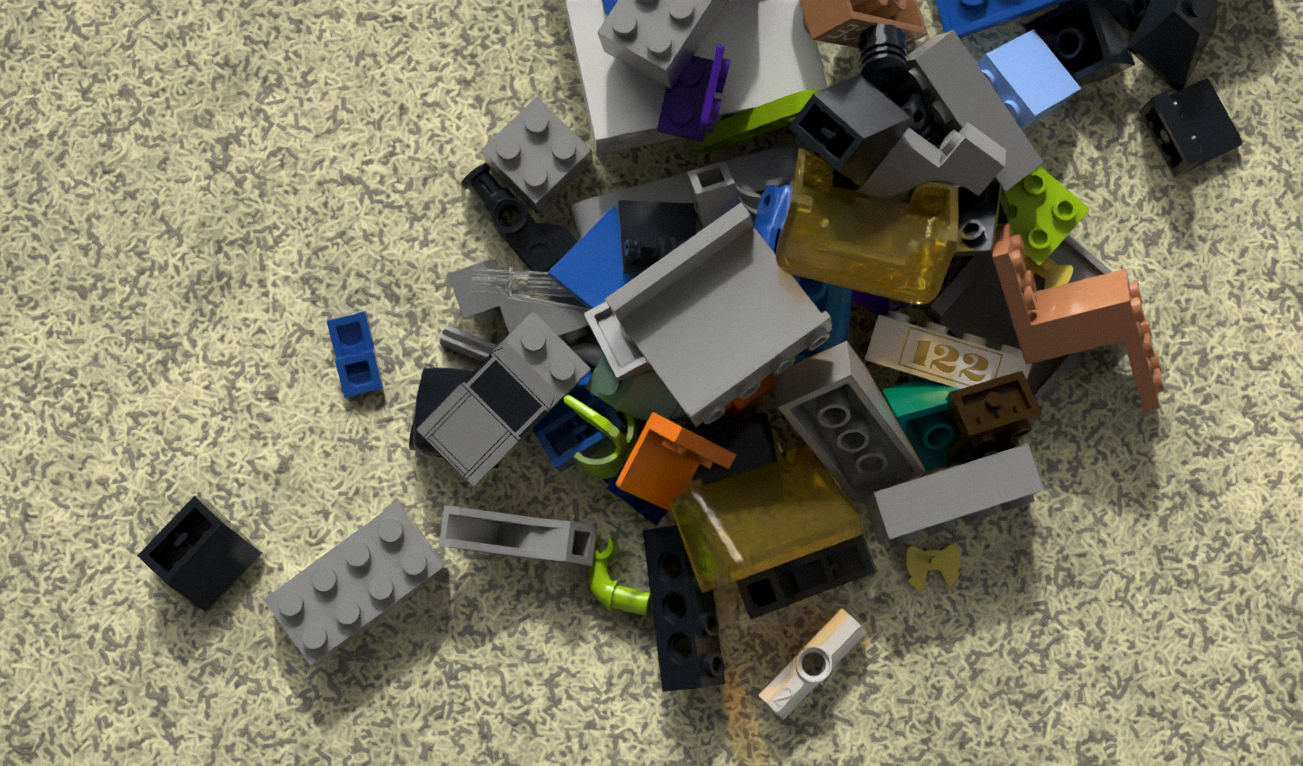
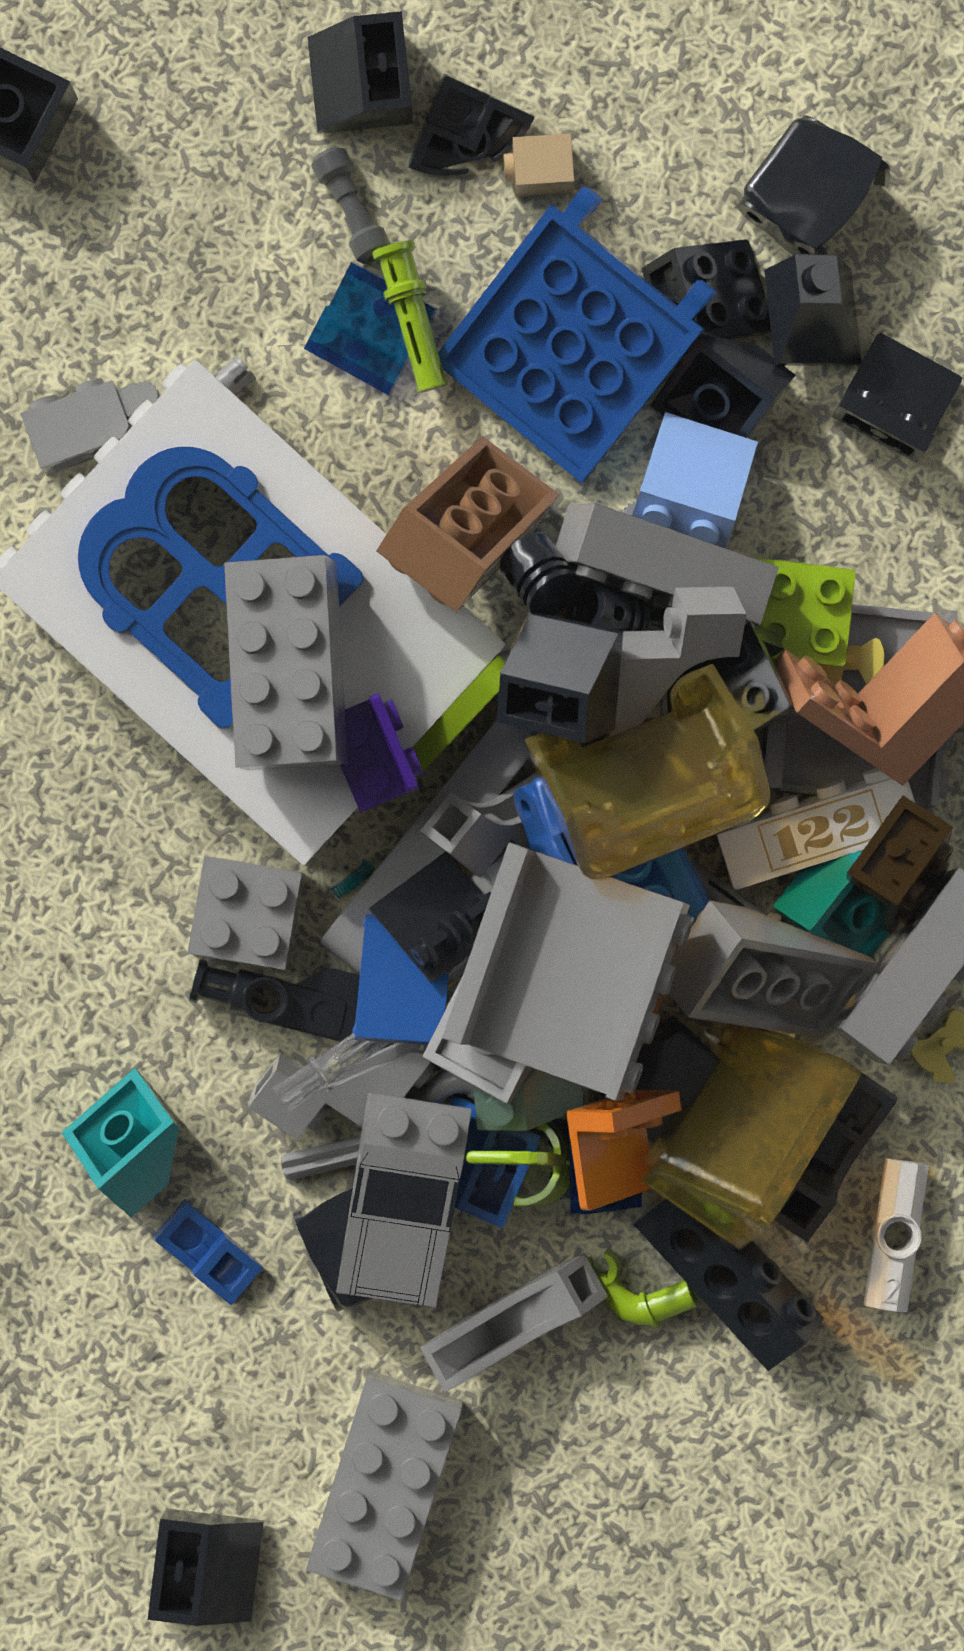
camera: 35 degrees left, 5 degrees up
(353, 247) = (126, 1143): none -> teal slope
(616, 187) = (354, 880): none -> teal leg

